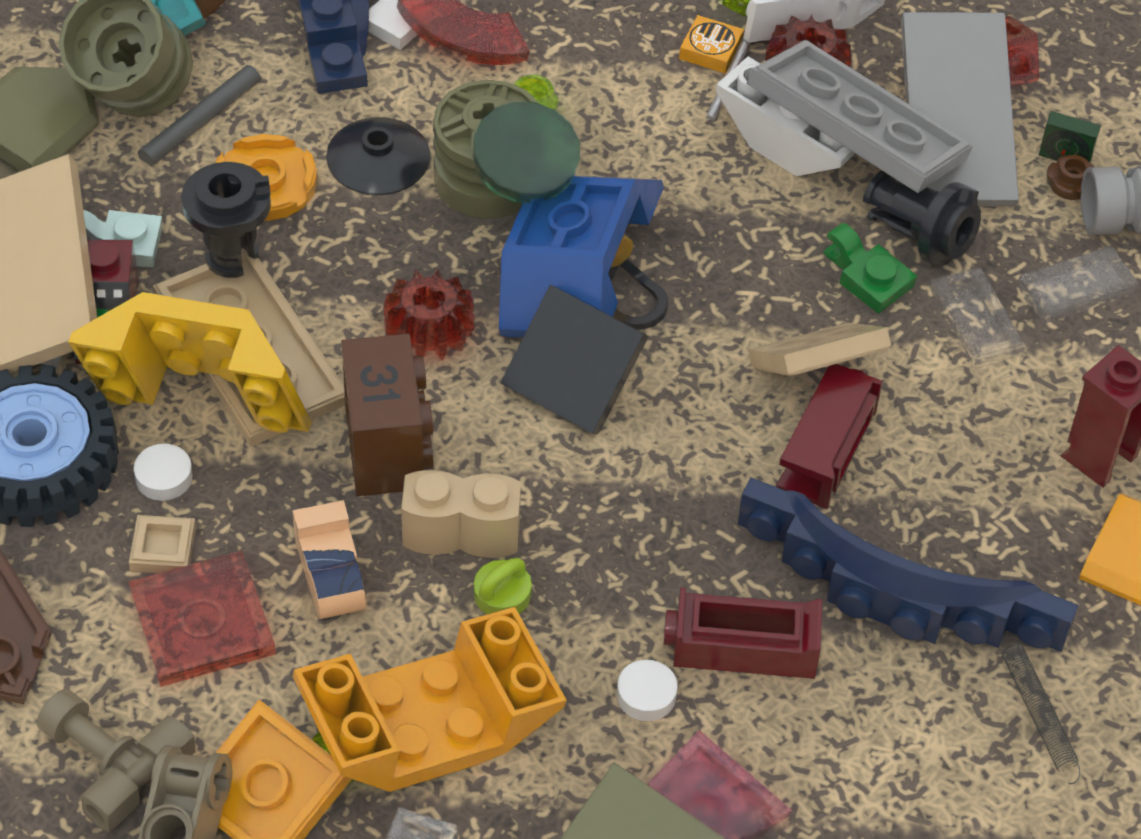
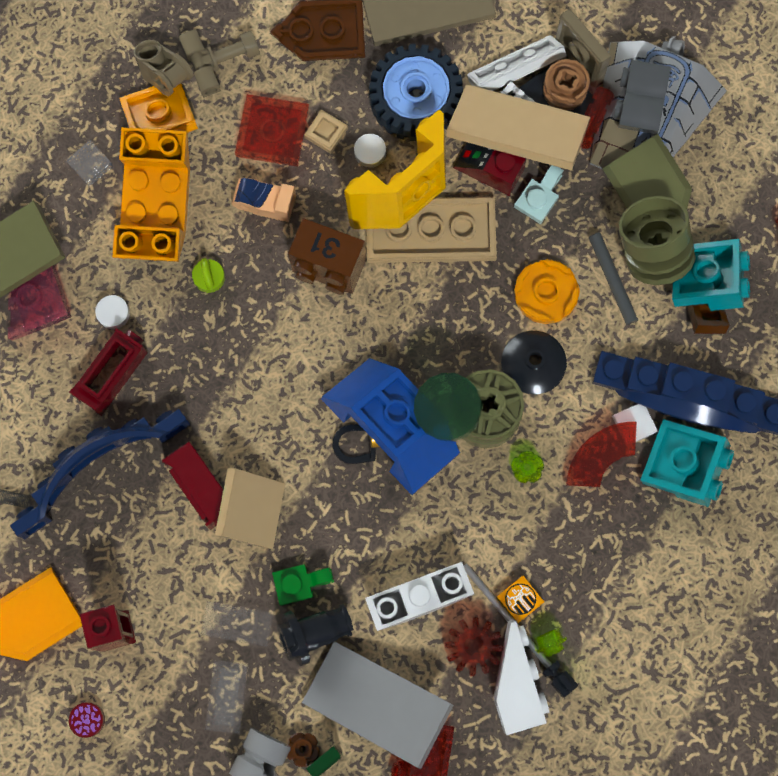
camera: 125 degrees right, 25 degrees up
(227, 206) = (485, 228): black piece -> none
(431, 311) = (384, 316): clear red gear -> none
(461, 513) = (249, 277): tan brick -> none
(574, 359) = (317, 377): black tile -> none
(860, 115) = (387, 626): light grey tile -> none

